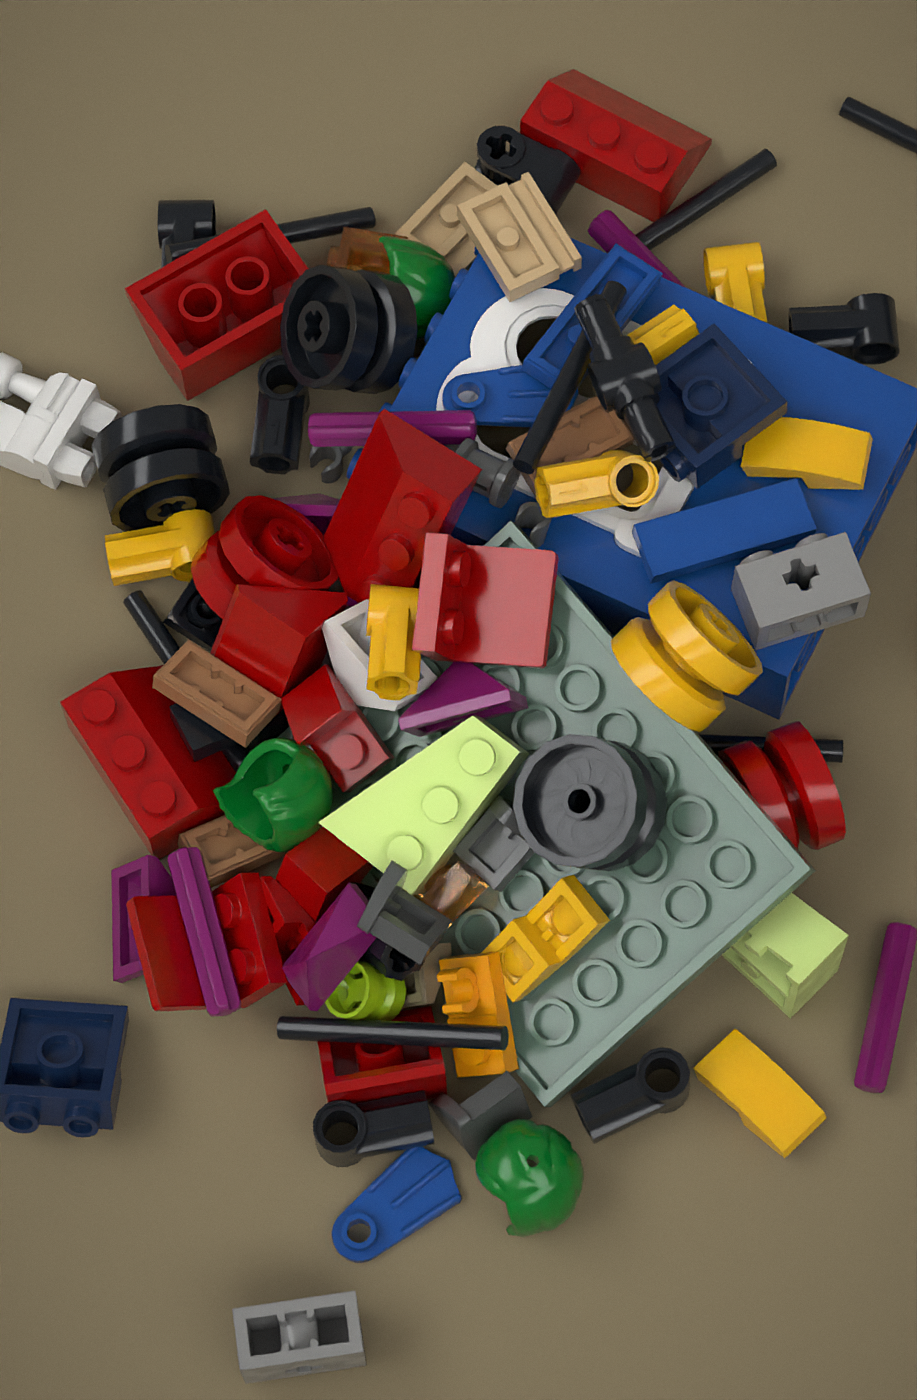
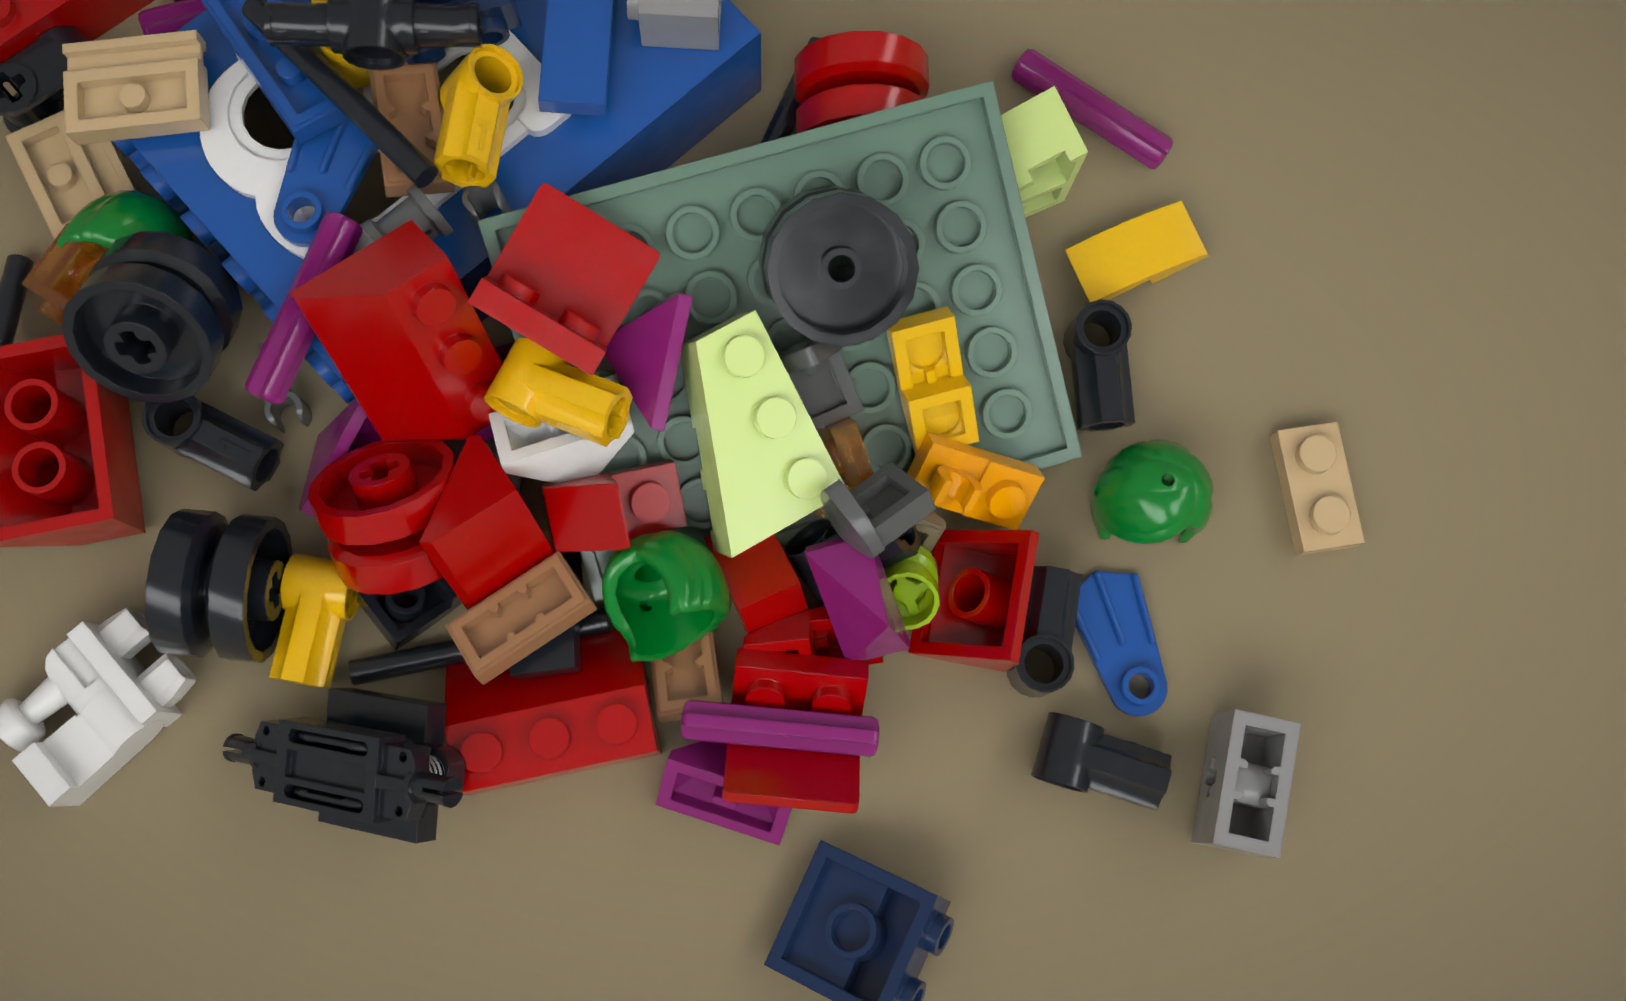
camera: 80 degrees left, 10 degrees up
(56, 629) = (364, 768): none -> black piece
(276, 1200) = (1082, 758): none -> black piece
(393, 1032) = (966, 572): black bar -> none
(482, 1113) = (1074, 518): dark grey tile -> none
(604, 1333) = (1316, 488): none -> tan plate
(686, 656) = (717, 114): yellow wheel -> none

